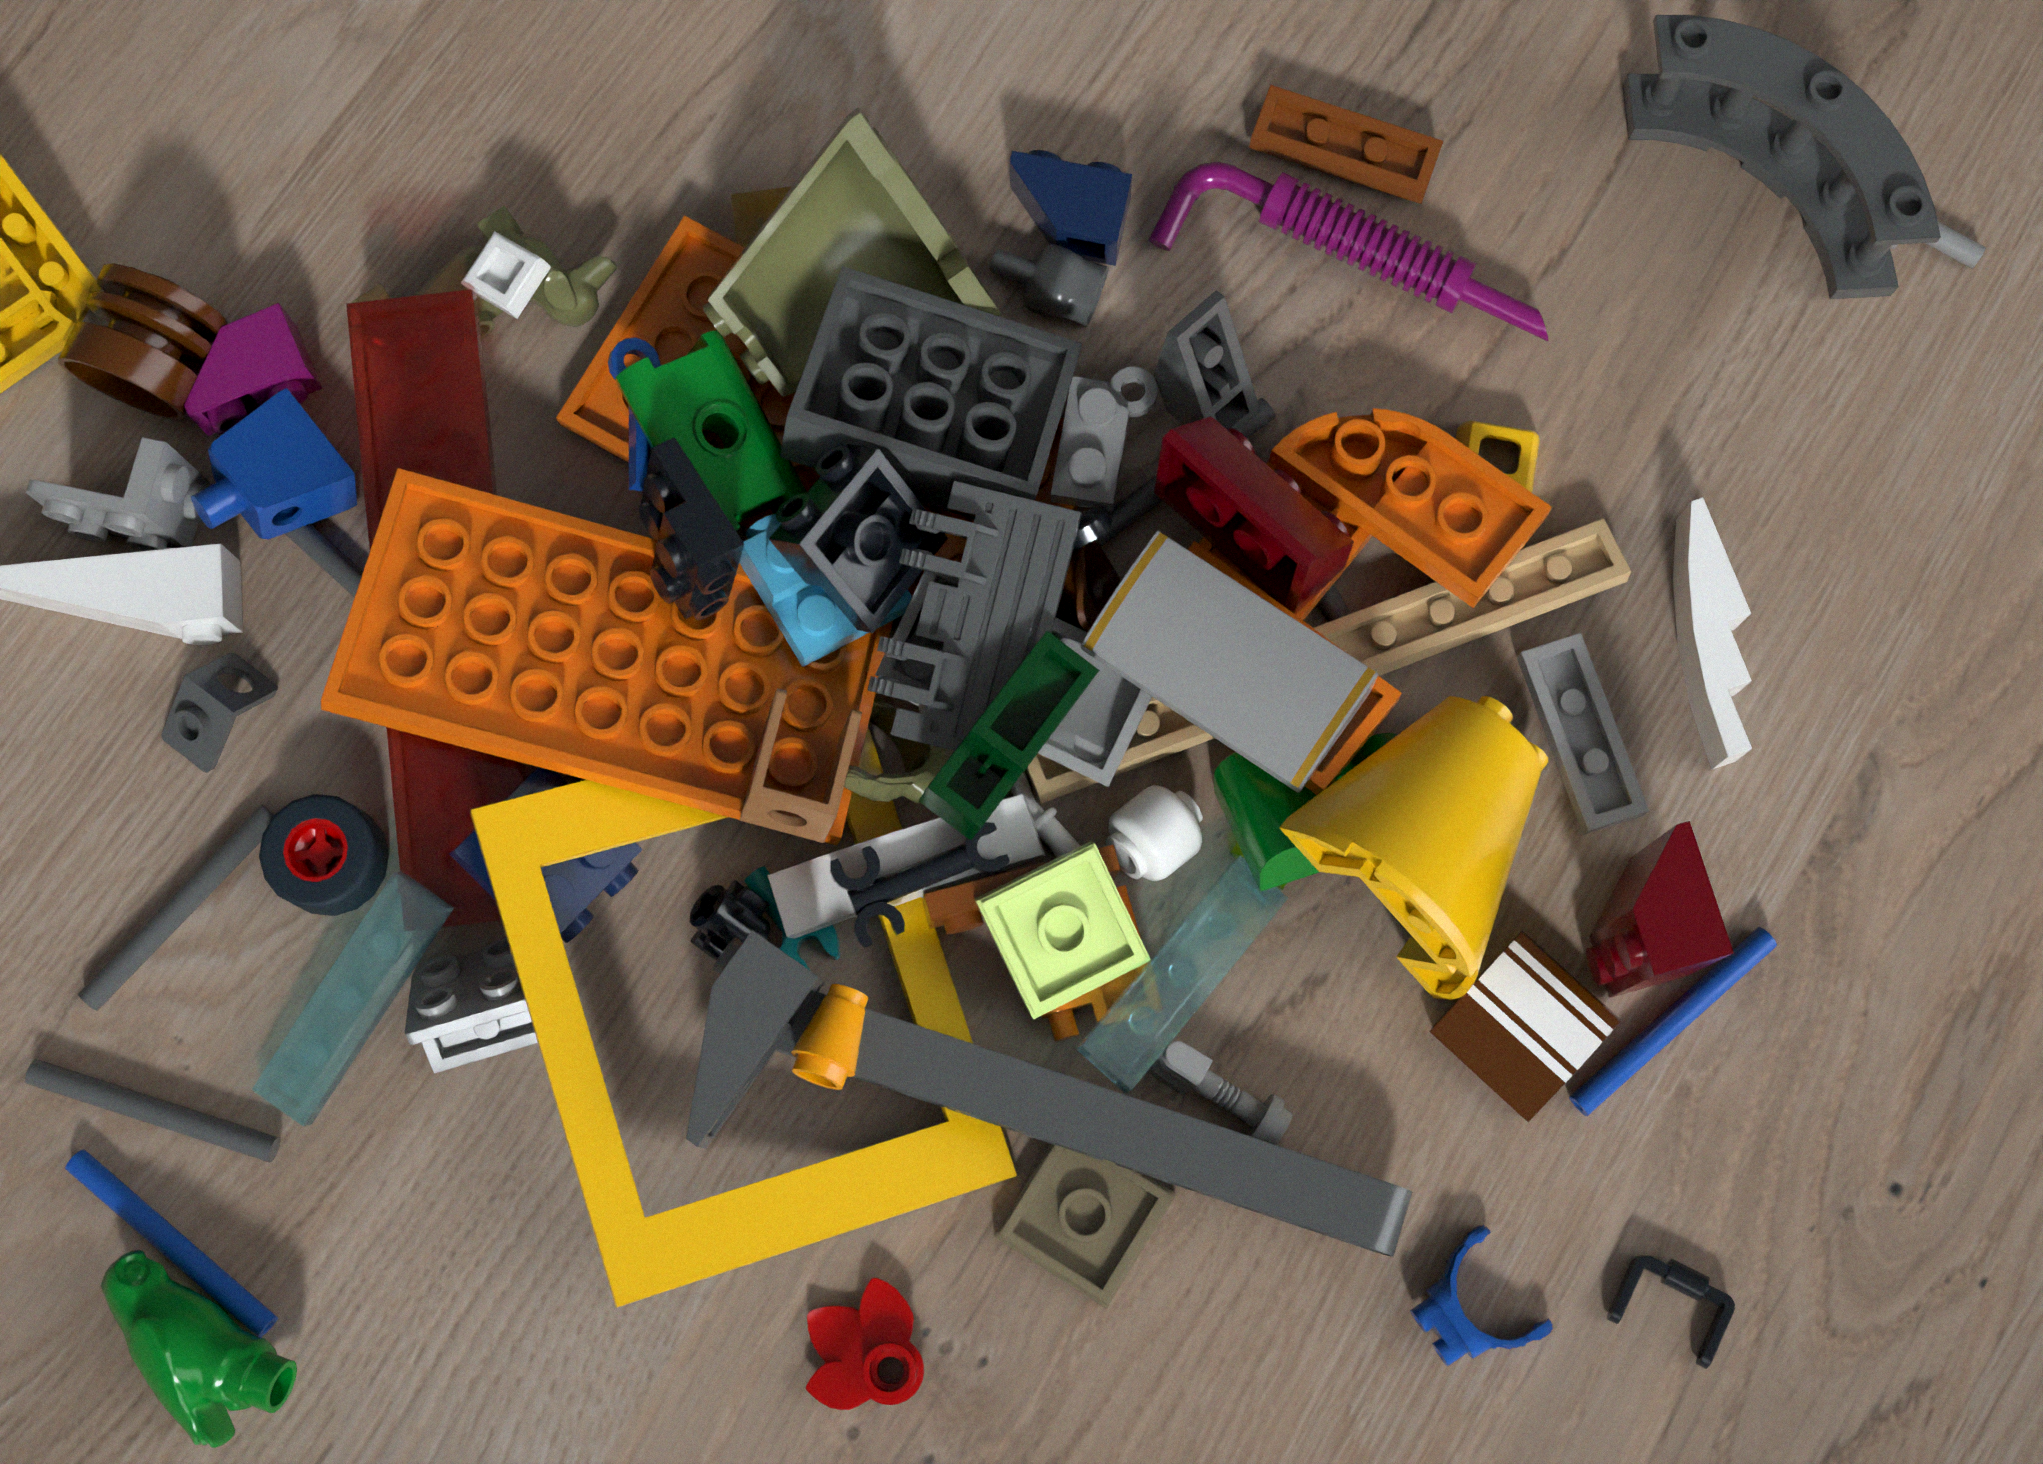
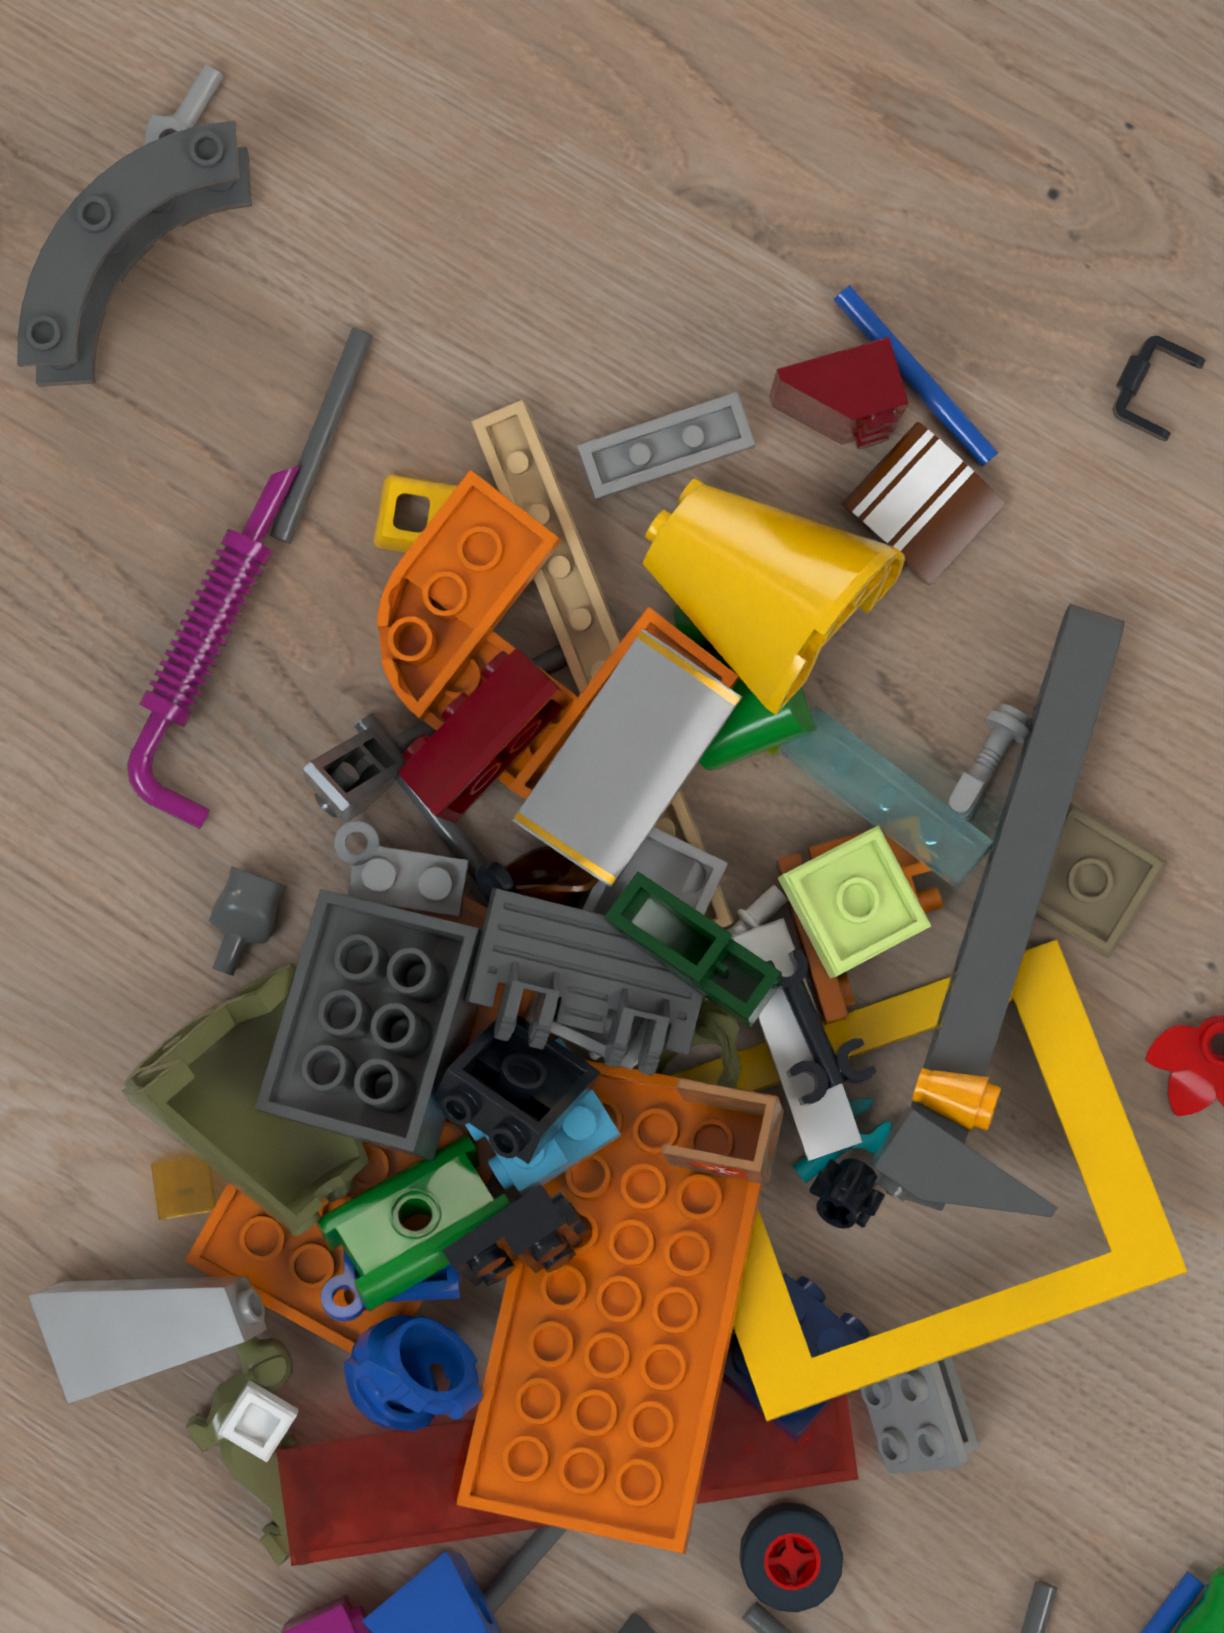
camera: 95 degrees left, 10 degrees up
(352, 998) = (917, 1522): clear light blue tile -> none
(532, 431) = (393, 1374): none -> blue helmet
(615, 160) = (134, 1328): none -> light grey slope
(1074, 202) = (172, 898): dark blue slope -> none
(1155, 833) = (761, 821): white head -> none
(1345, 144) = (107, 645): dark orange plate -> none
(1446, 1317) = (1167, 577): blue helmet -> none
(1581, 366) = (321, 435): none -> dark grey bar
(1706, 612) = (553, 334): white slope -> none

